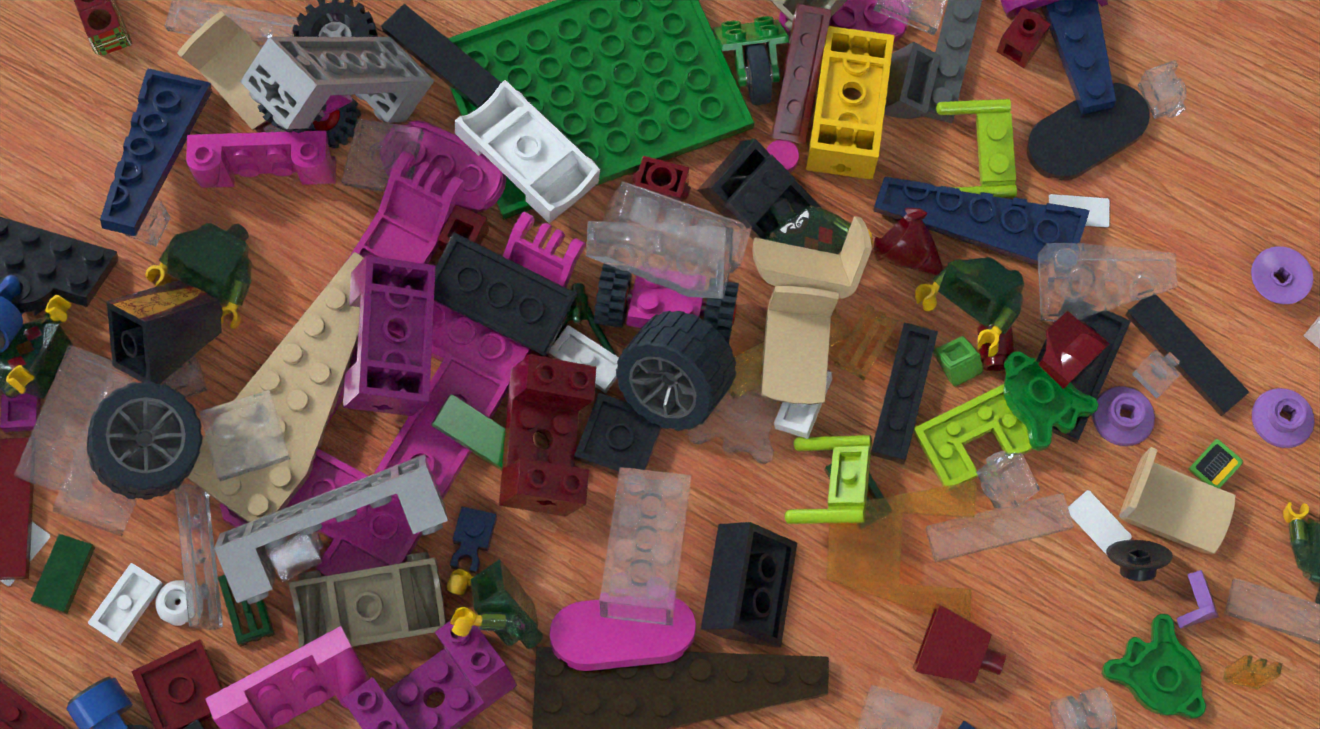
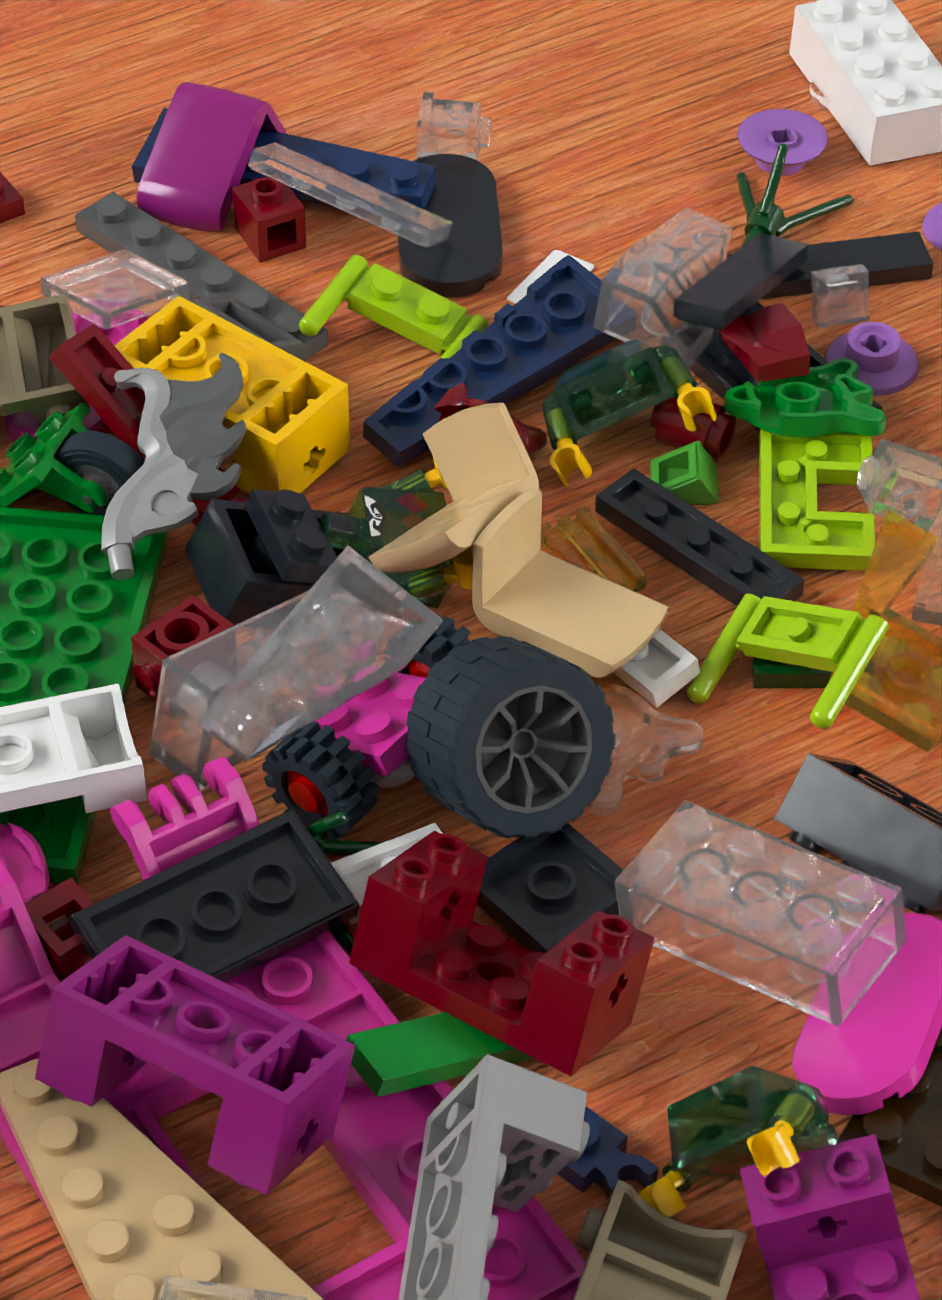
camera: 60 degrees left, 25 degrees down
(781, 105) = (183, 450): none -> piece
(1056, 71) = (350, 194): none -> clear tile
(1113, 315) = (740, 281): none -> black tile
(1202, 302) = (766, 215): none -> dark green plant

